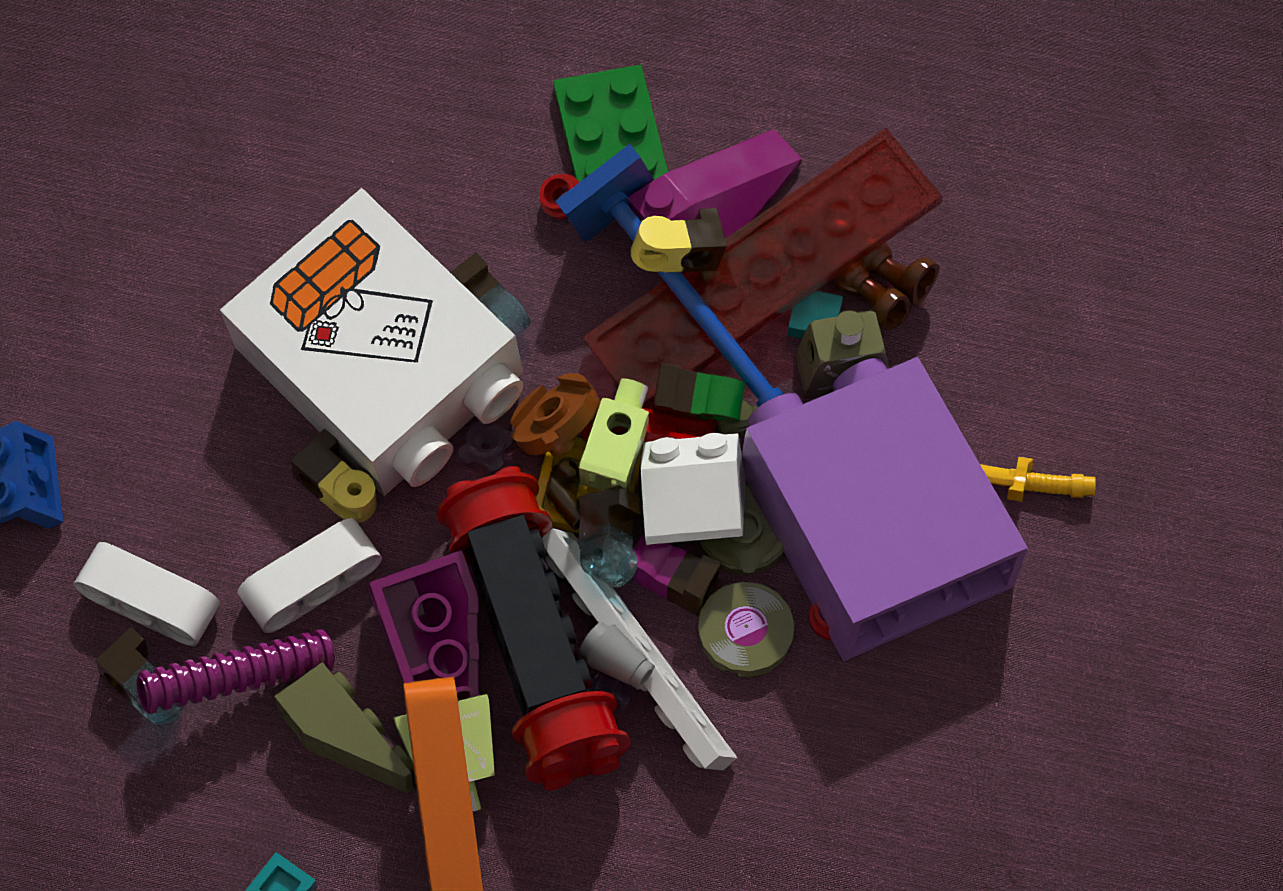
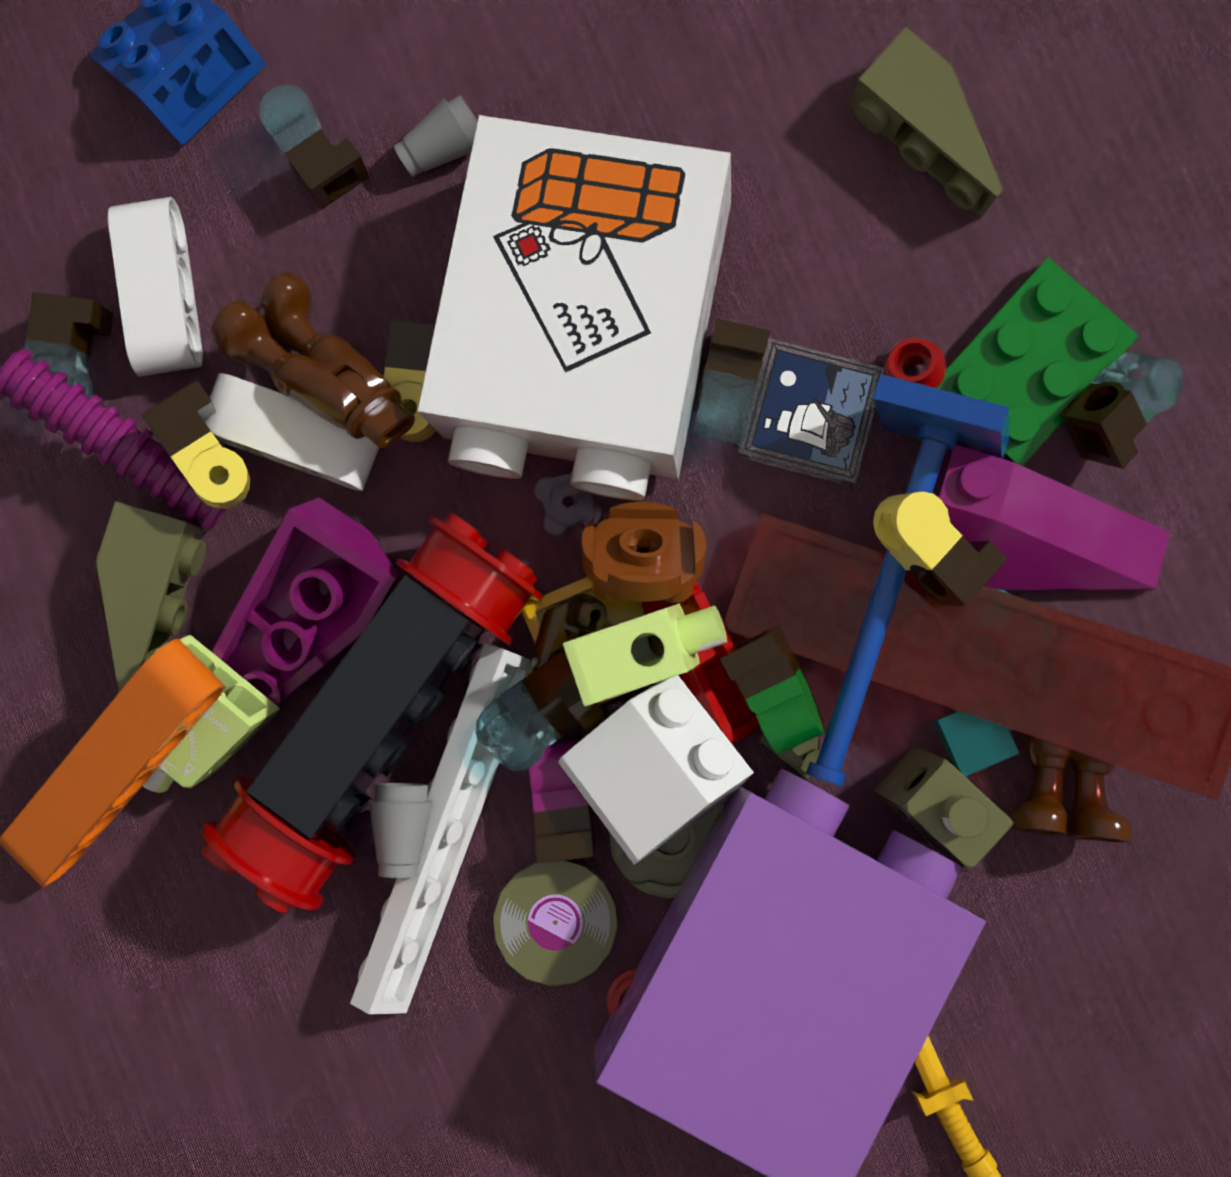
camera: 55 degrees right, 20 degrees up
(134, 443) = (297, 133): none -> leg
(192, 361) = (439, 137): none -> light grey cone
(285, 521) = (327, 373): none -> reddish brown piece
(288, 614) = (212, 471): none -> leg
(410, 85) = (922, 110): none -> olive slope
(545, 271) = (811, 412): none -> tile
(675, 101) = (1120, 405): none -> leg

